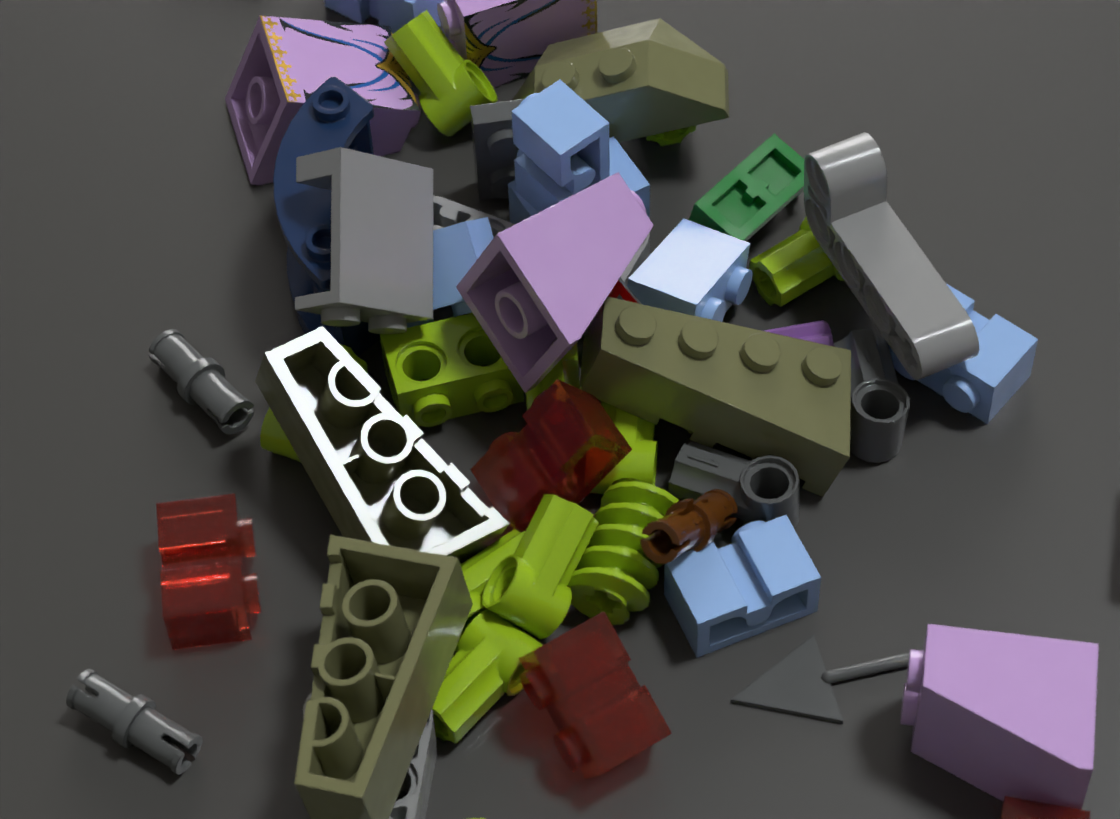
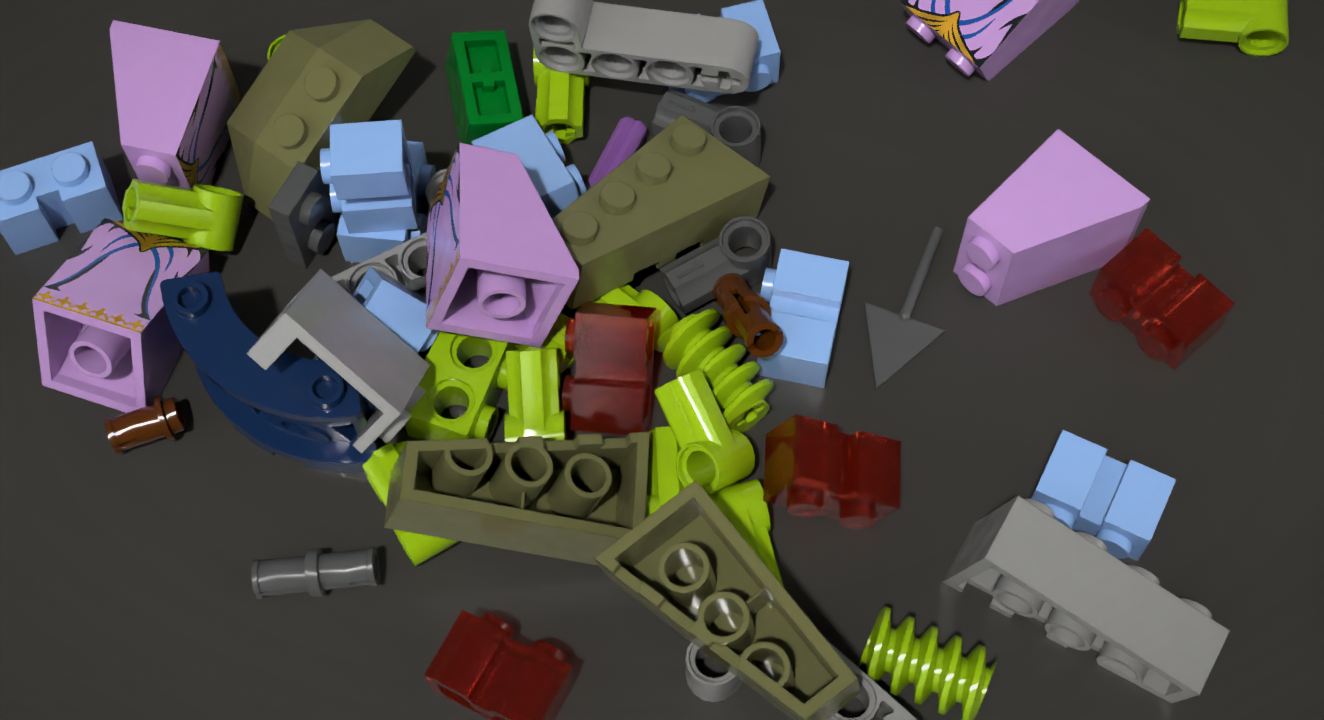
camera: 55 degrees left, 10 degrees up
(248, 186) = (146, 424): none -> reddish brown pin
(479, 418) = (534, 395): none -> lime piece

